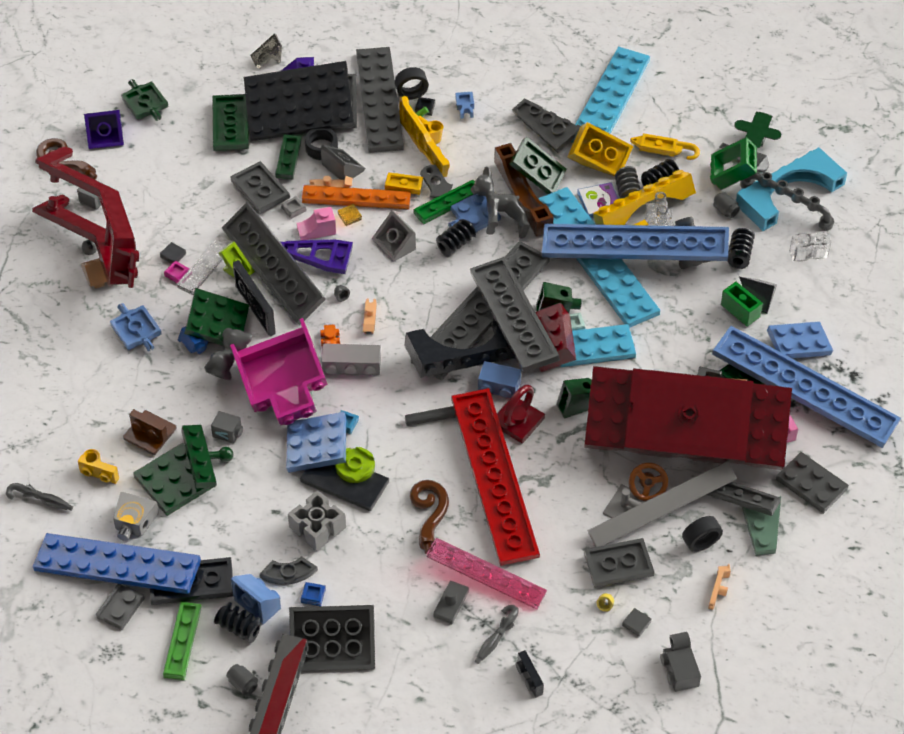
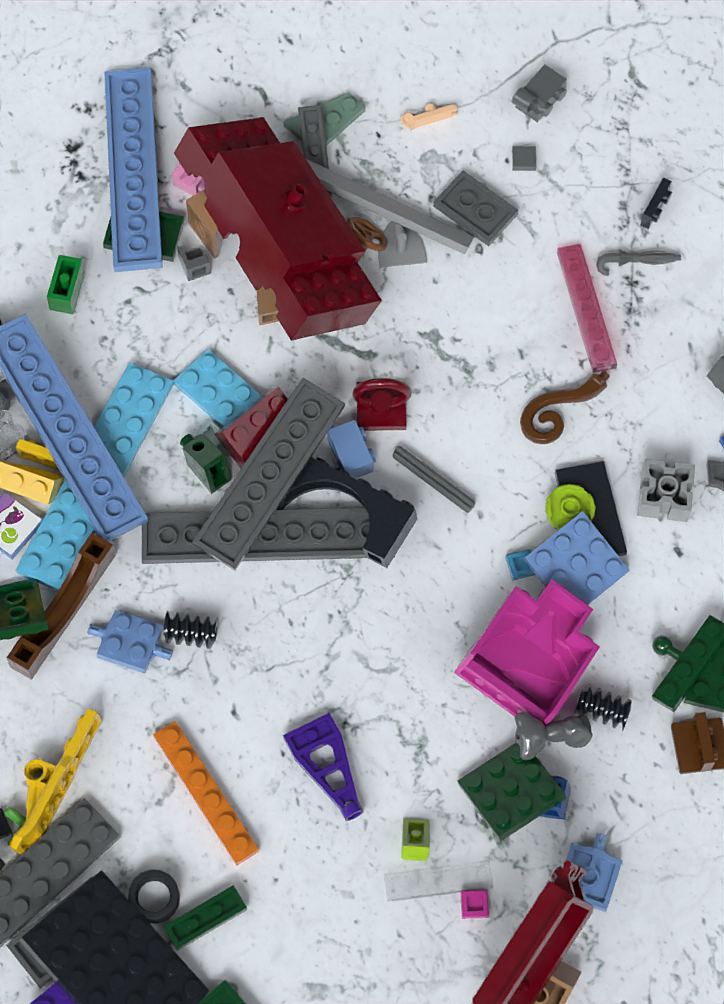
camera: 130 degrees left, 15 degrees up
(173, 253) = (453, 931): black tile -> none
(218, 395) = (604, 707): none -> black piece
(226, 427) = (631, 669): dark grey brick -> none
(254, 298) = (454, 769): black tile -> none
(260, 187) = (278, 912): dark grey plate -> none
(273, 263) = (384, 797): dark grey plate -> none
(293, 207) = (275, 852): light grey tile -> none
(318, 225) = (287, 797): bright pink arch -> none
(327, 181) = (207, 835): light nougat piece -> none
(330, 335) = (431, 659): orange piece -> none
(340, 162) = (166, 845): dark grey slope -> none
(341, 293) = (360, 697): dark grey hinge -> none
(349, 215) = (238, 779): clear yellow tile -> none
(351, 359) = (444, 613): light grey brick -> none
(369, 316) = (368, 643): light nougat piece -> none
(395, 237) = (240, 696): light grey slope -> none
(404, 182) = (146, 751): yellow plate -> none
(436, 190) = (110, 732): dark grey piece -> none
(443, 203) = (133, 685): green tile -> none
(451, 602) = (638, 320): dark grey tile -> none
(495, 477) = (471, 375): red plate -> none
(499, 202) = (98, 640): dark grey animal -> none
(574, 397) = (315, 358): dark green torso -> none
(601, 602) = (527, 193): light yellow hinge -> none
(702, 533) = (391, 151): black tyre -> none
(761, 290) = (26, 282): black slope -> none
(800, 339) = (69, 210): medium blue plate -> none
(812, 482) = (242, 98): dark grey plate -> none

